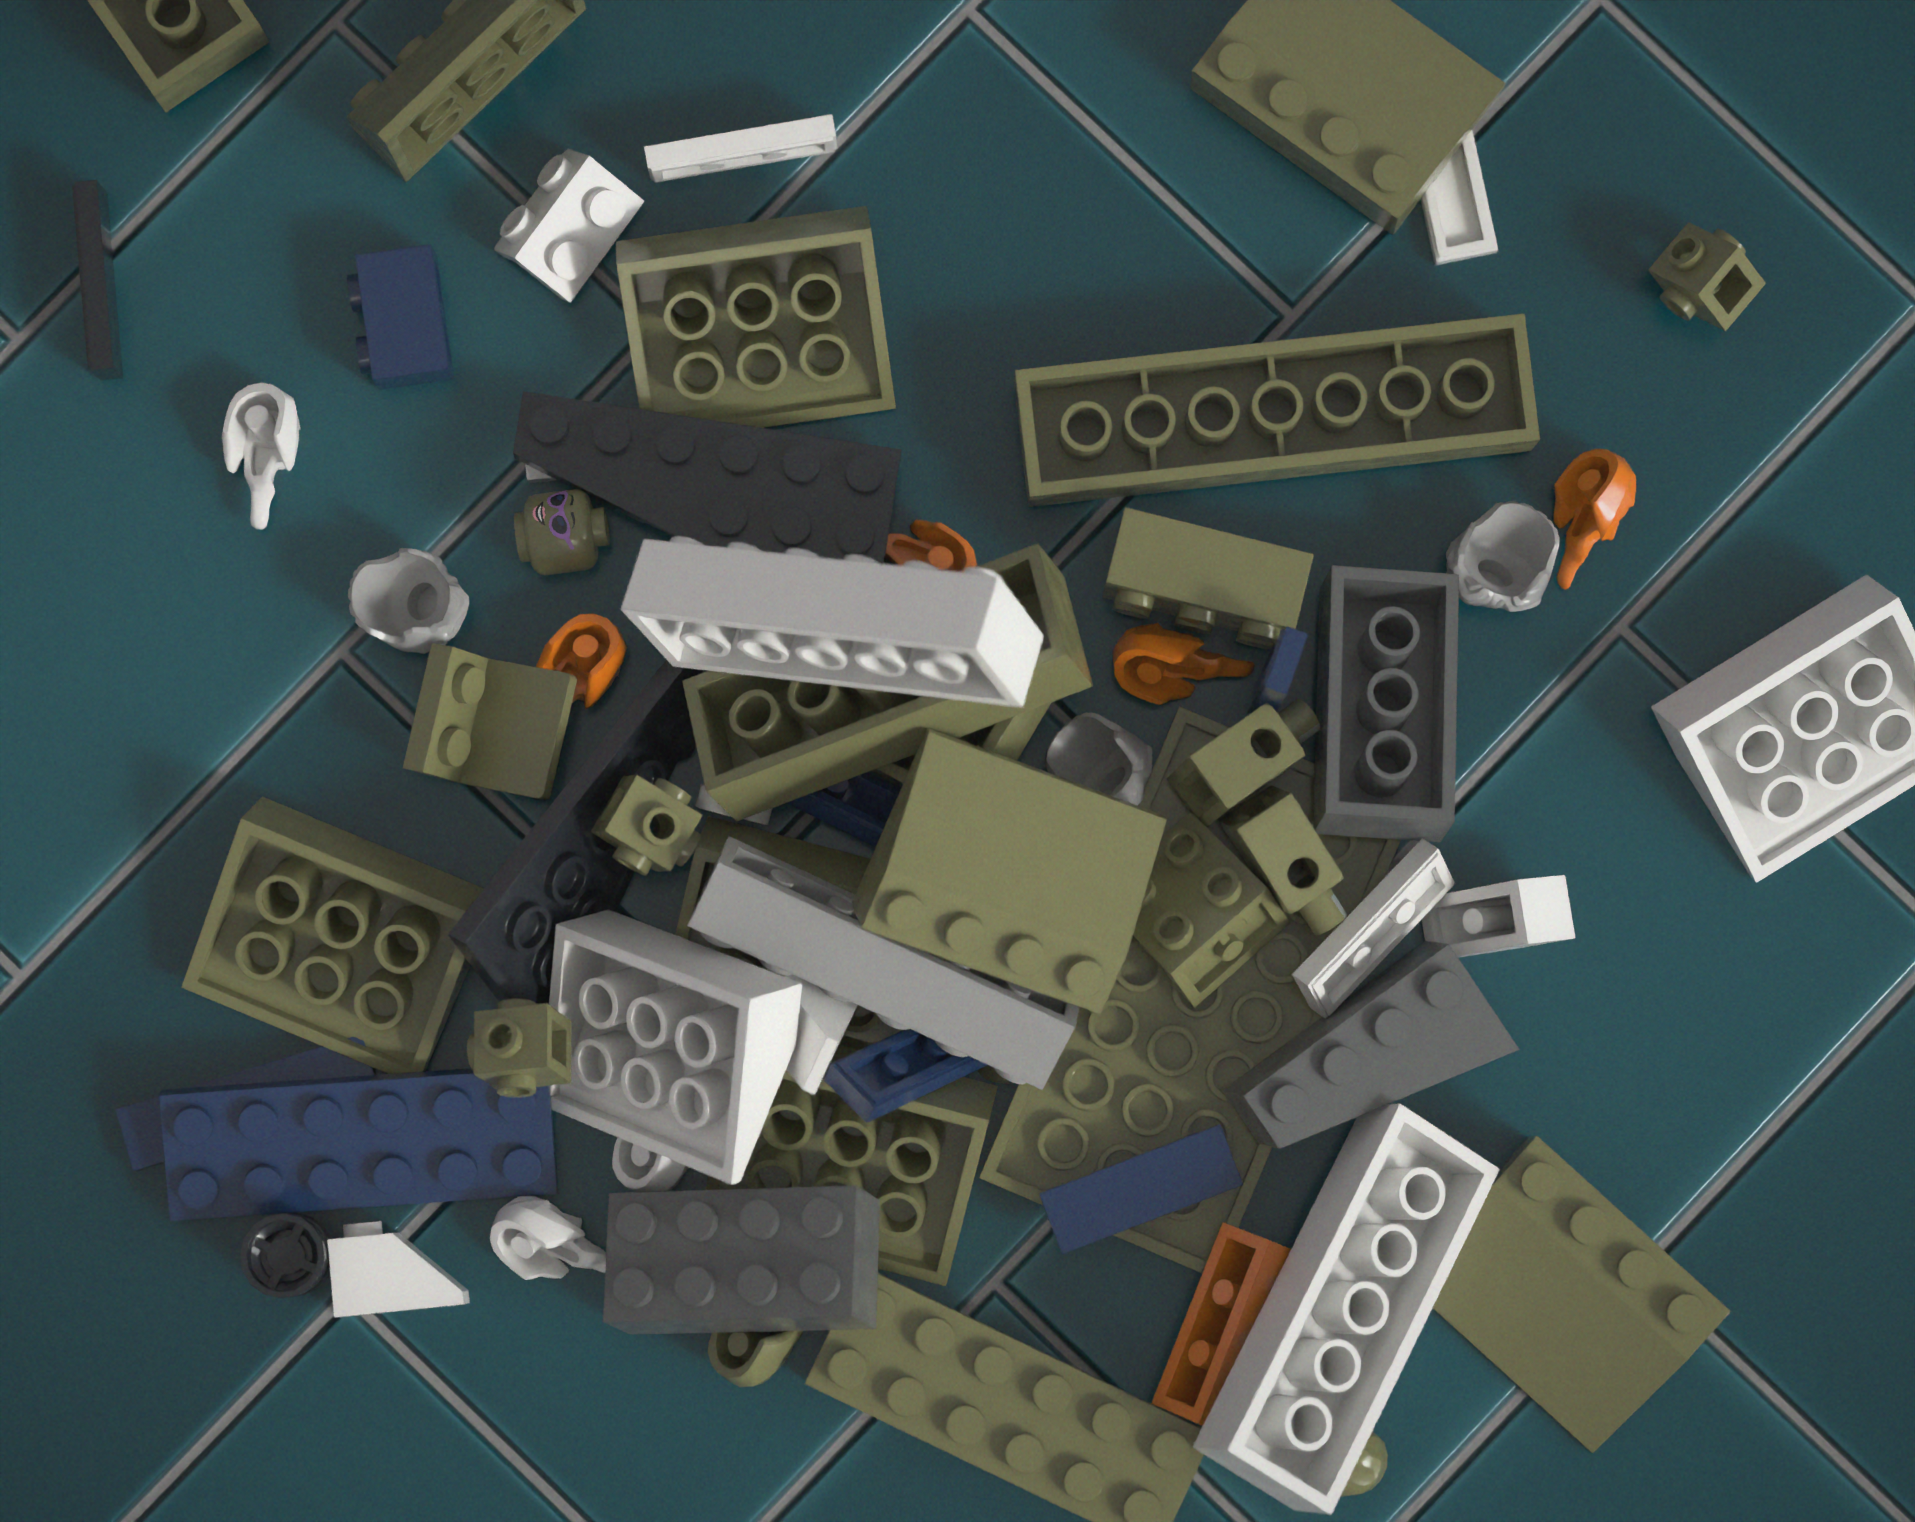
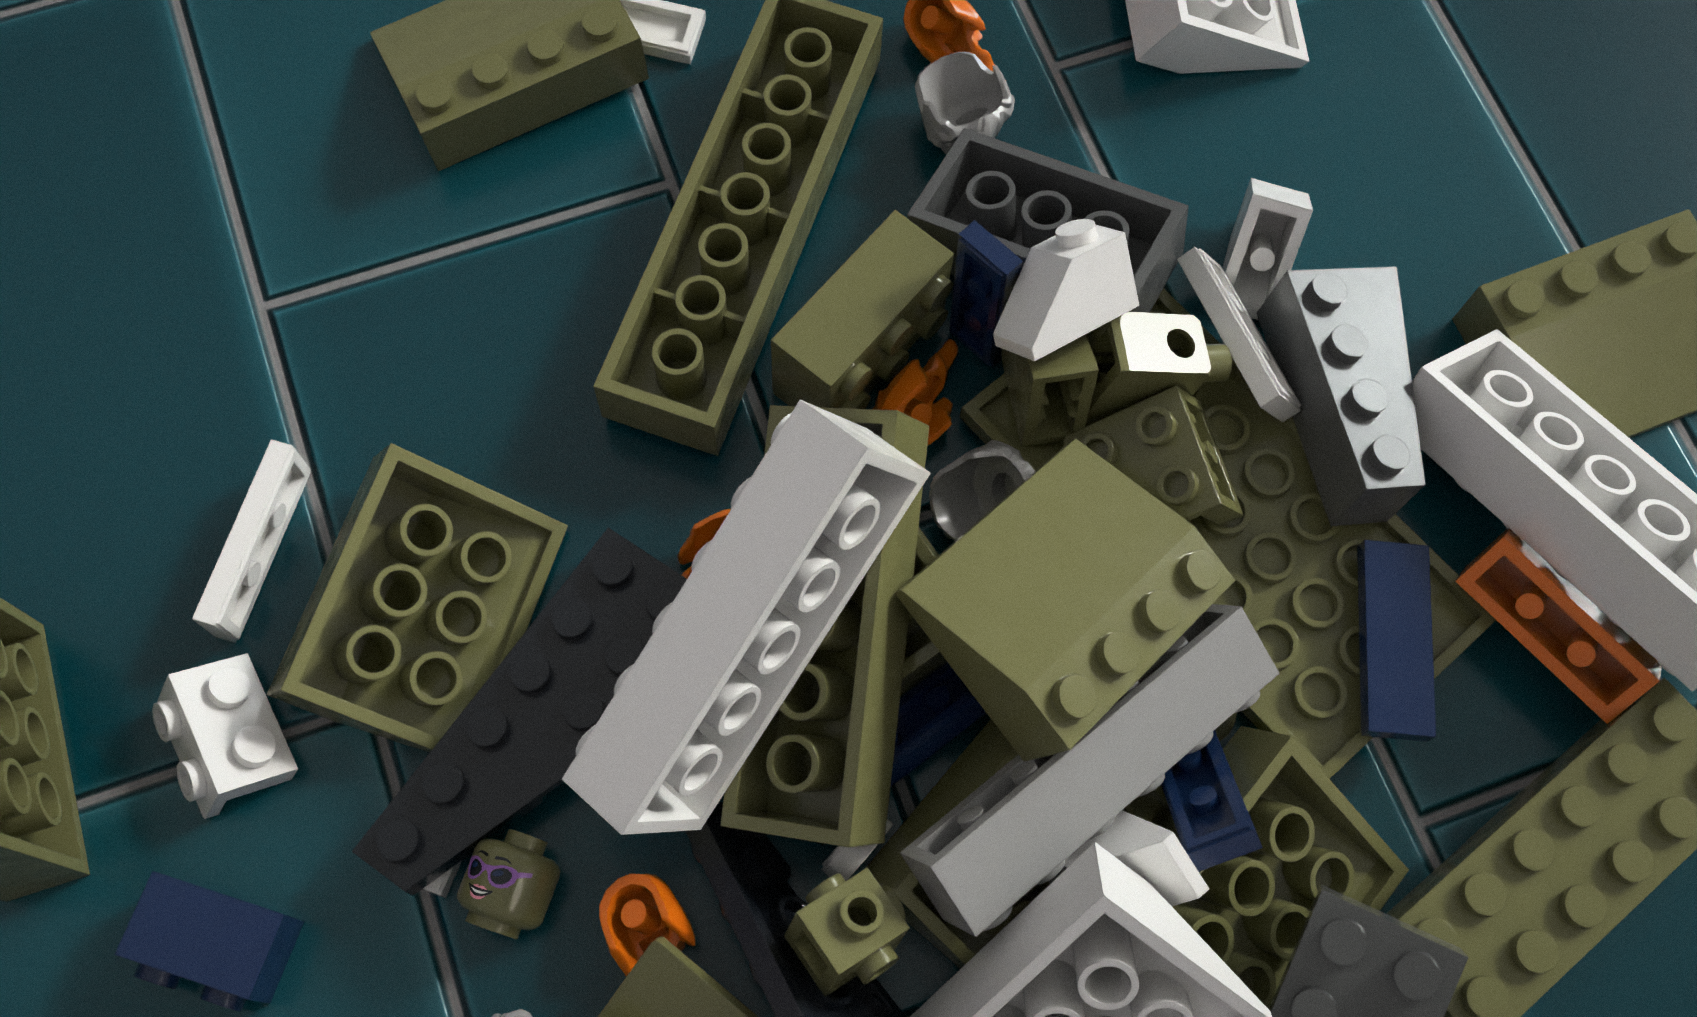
camera: 65 degrees left, 15 degrees down
(1281, 746) = (1067, 289): none -> white slope

